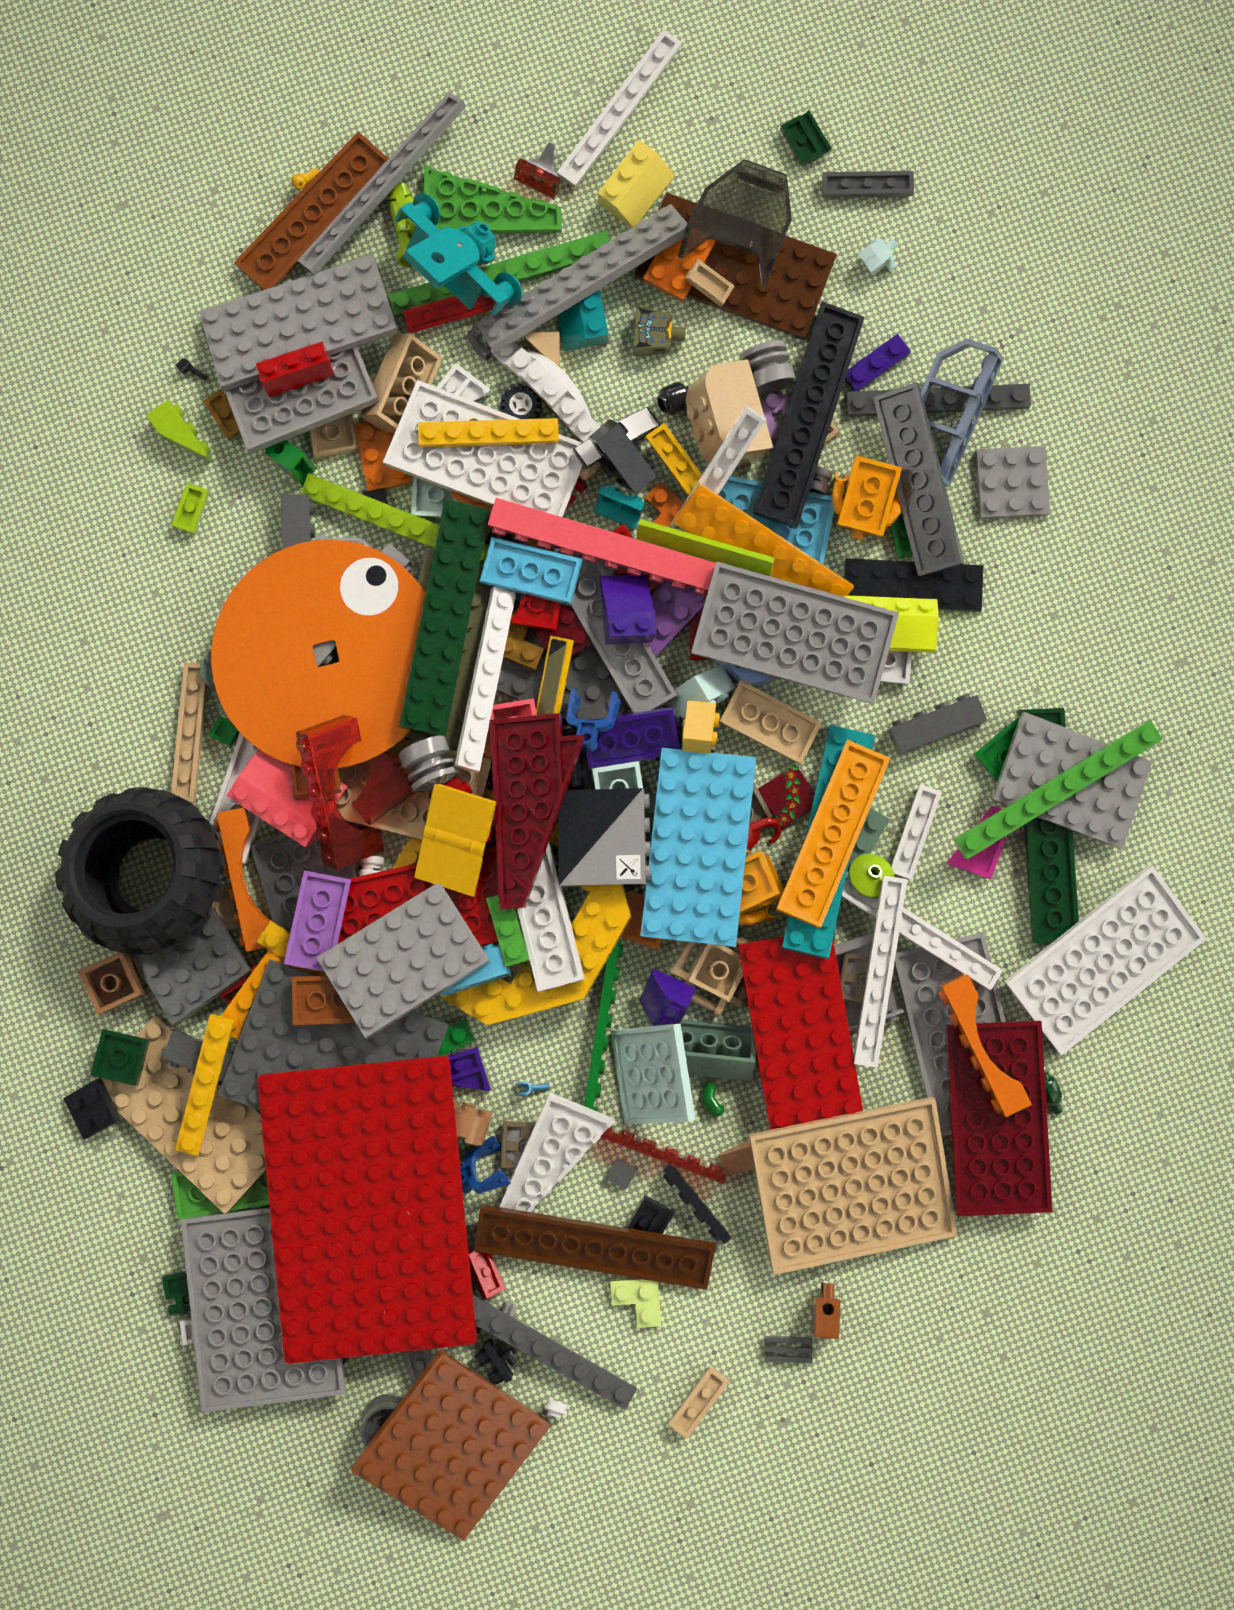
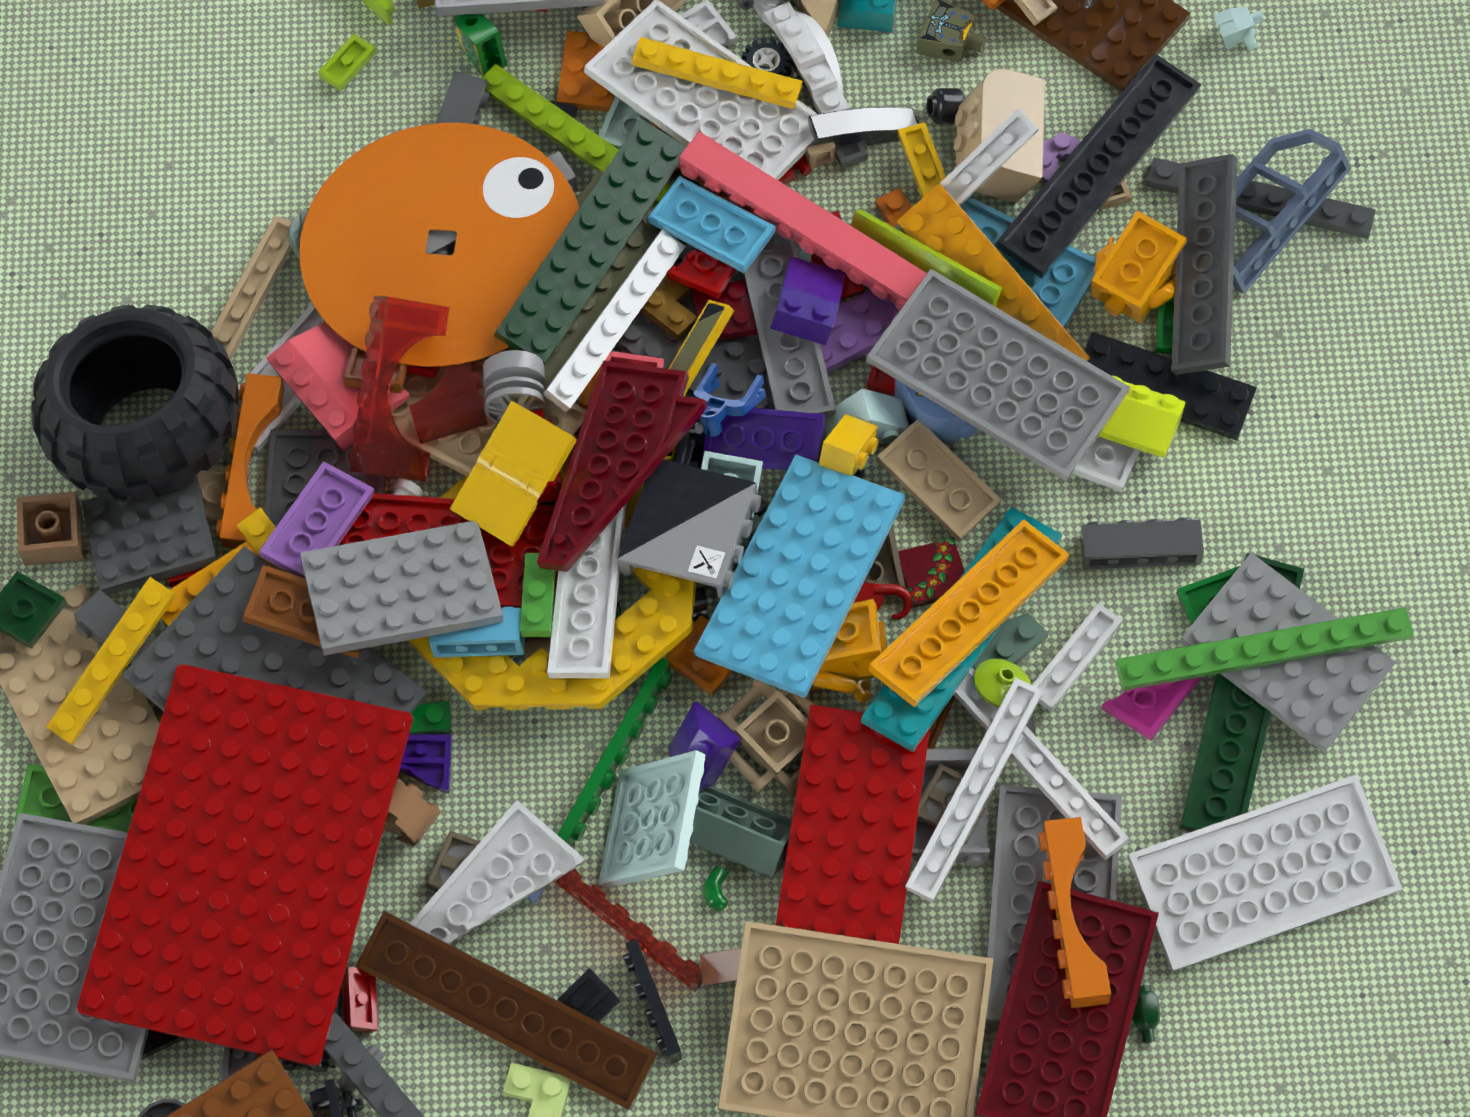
camera: 20 degrees right, 20 degrees down
(224, 731) = (291, 302): green plate -> none
(334, 438) = (539, 33): tan tile -> none
(468, 1170) = (383, 875): blue piece -> none
(531, 1087) = (494, 802): dark azure hand -> none
(618, 506) = (841, 194): teal bracket -> none
(621, 1173) = (572, 940): dark grey tile -> none
(623, 456) = (862, 136): black wedge -> none
(769, 366) = (1069, 100): light grey wheel -> none
(820, 481) = (1090, 238): flat silver wheel -> none
(877, 363) = (1200, 139): dark purple plate -> none
(1012, 482) = (1322, 310): light grey plate -> none

